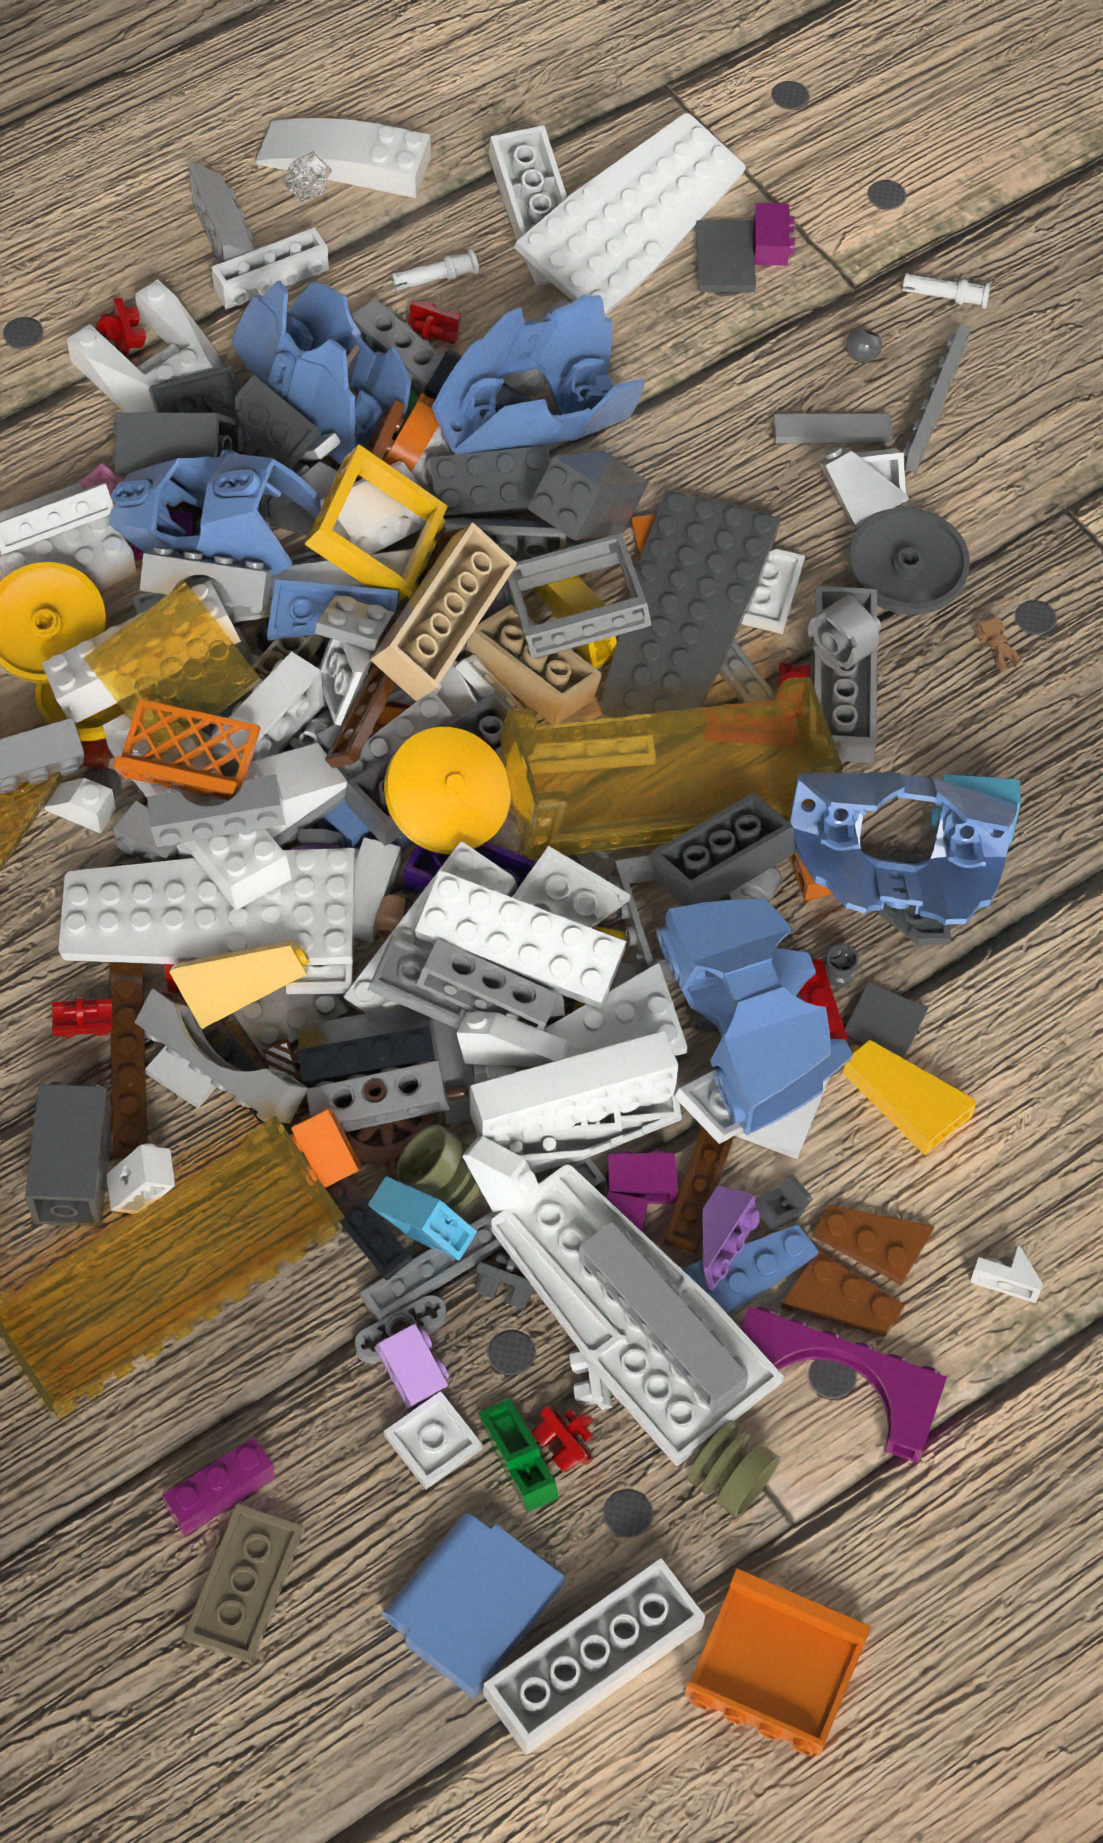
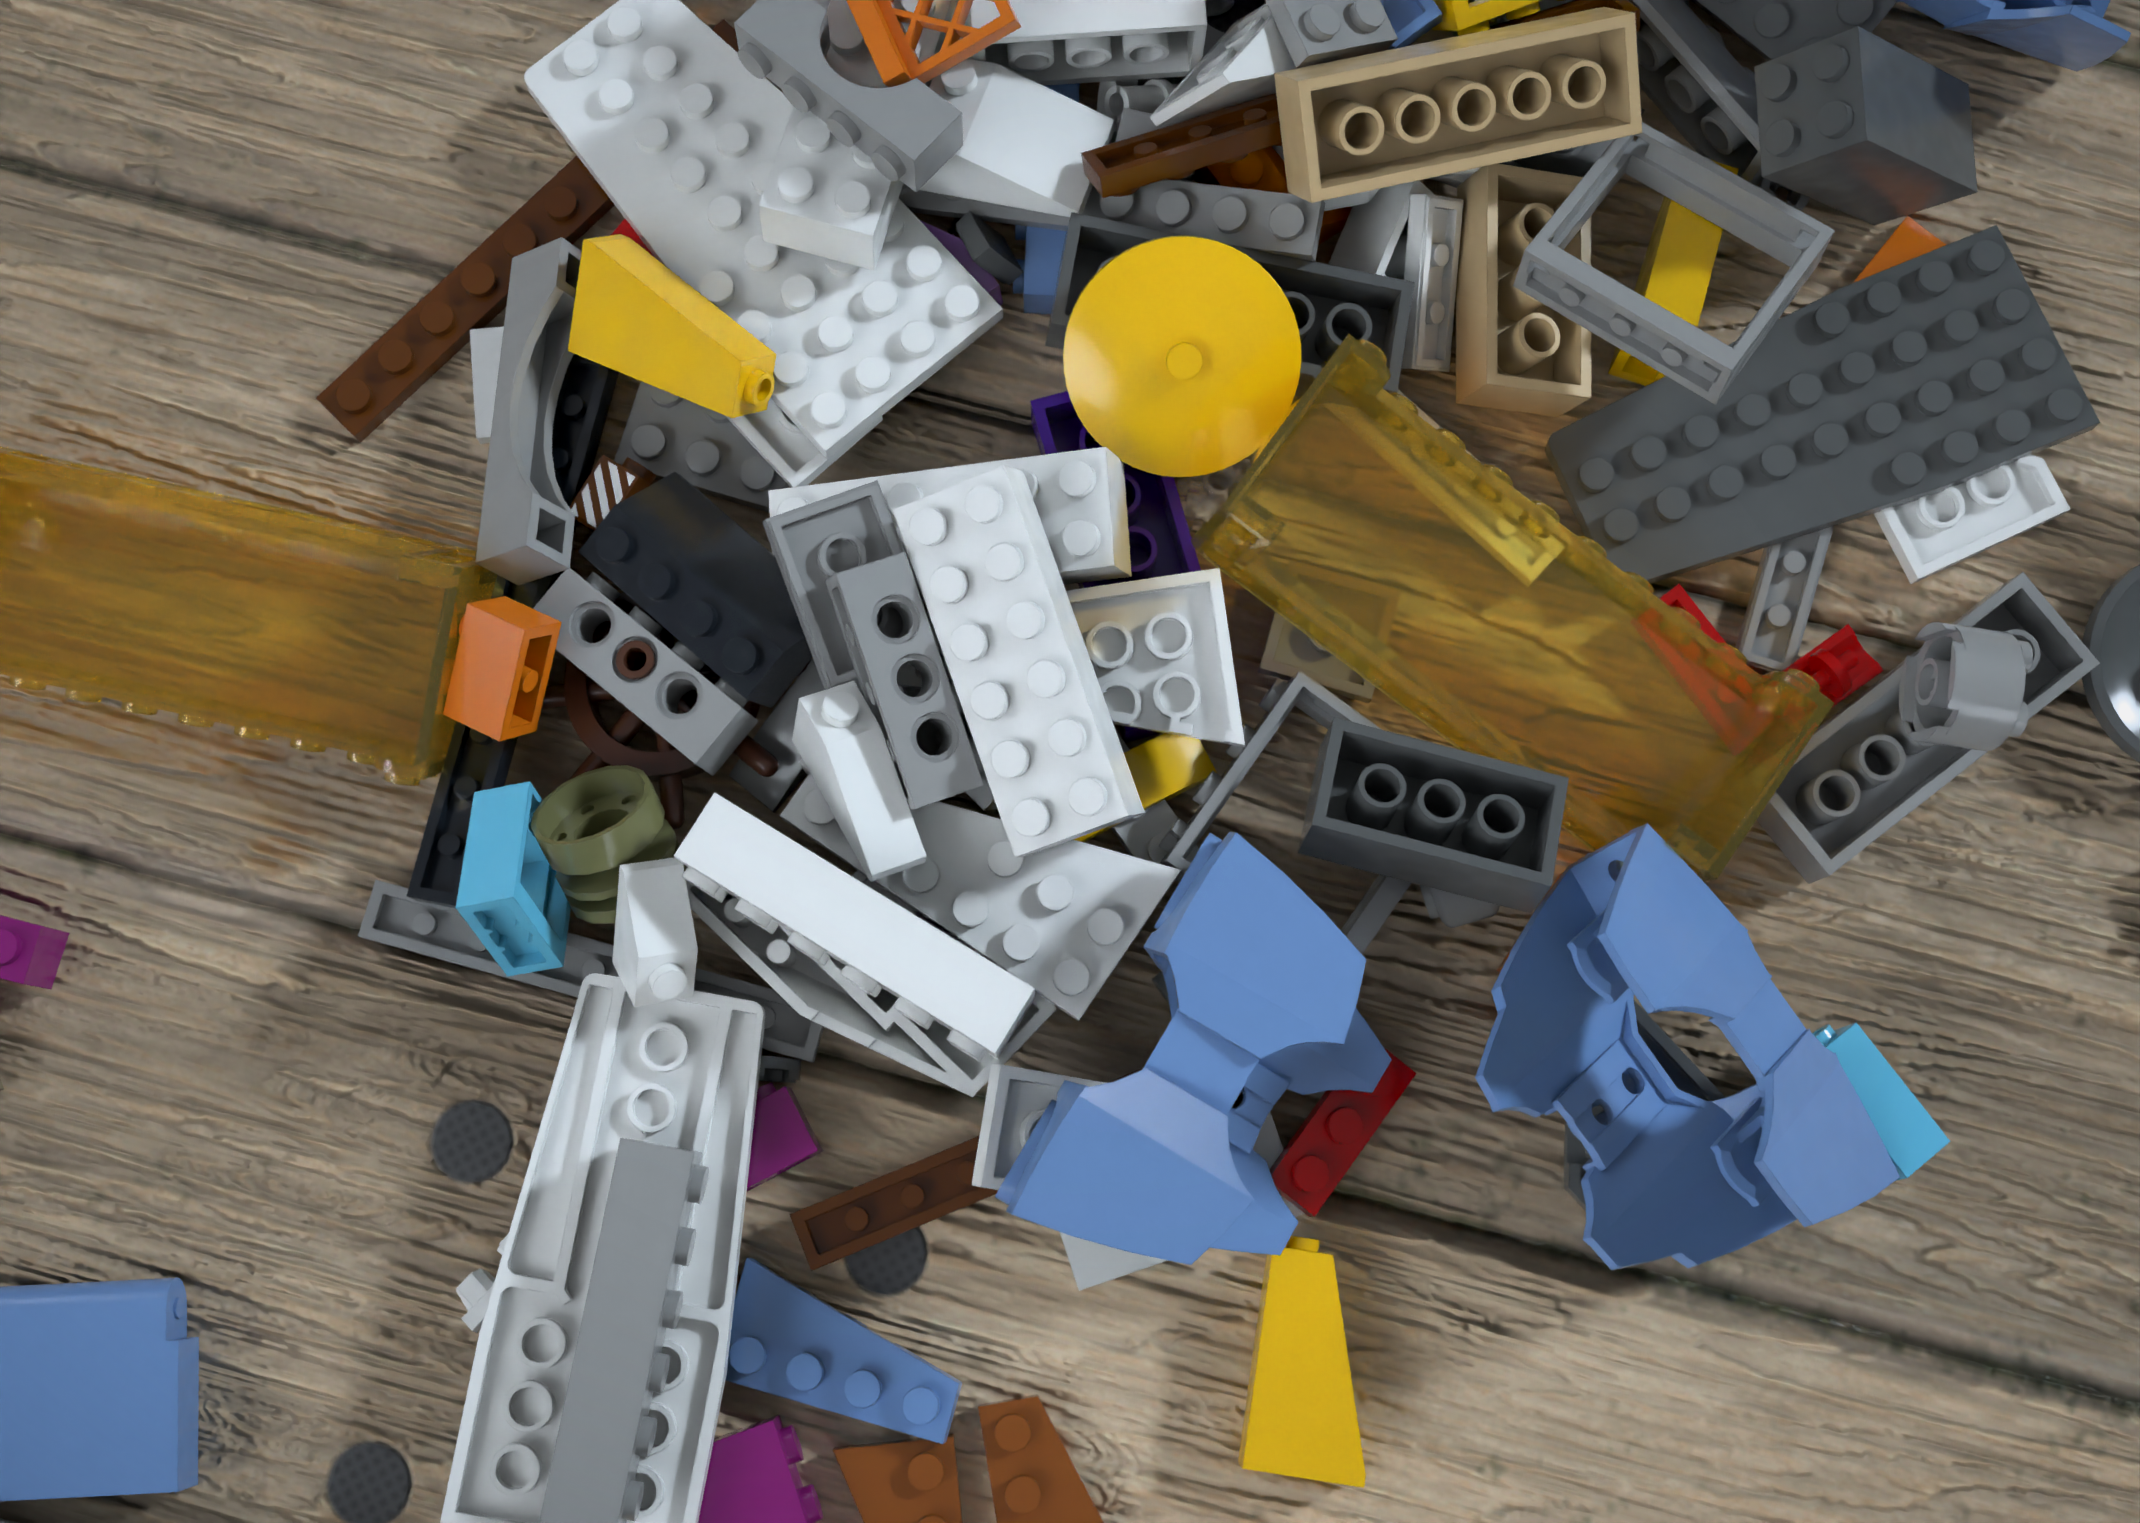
camera: 50 degrees right, 20 degrees up
(69, 1155) = (248, 346): dark grey brick -> none
(82, 1017) = (467, 187): red hips -> none
(140, 1179) = (287, 464): white brick -> none
(374, 878) = (985, 379): white brick -> none
(391, 912) = (964, 440): medium nougat head -> none
(412, 1365) = (320, 1038): lavender brick -> none
(418, 1307) = (345, 943): light grey beam -> none
(433, 1440) = (251, 1150): white plate -> none
(491, 1277) = (544, 1032): dark grey hips -> none
(519, 1455) = (320, 1278): green slope -> none
(573, 1450) = (396, 1323): red hips -> none
(643, 1175) = (856, 1106): magenta brick -> none
(726, 1224) = (866, 1287): medium lavender slope -> none
(783, 1203) = (978, 1331): dark grey bracket -> none
(841, 965) = (1437, 1106): dark grey wheel -> none
(885, 1020) = (1394, 1243): dark grey tile -> none

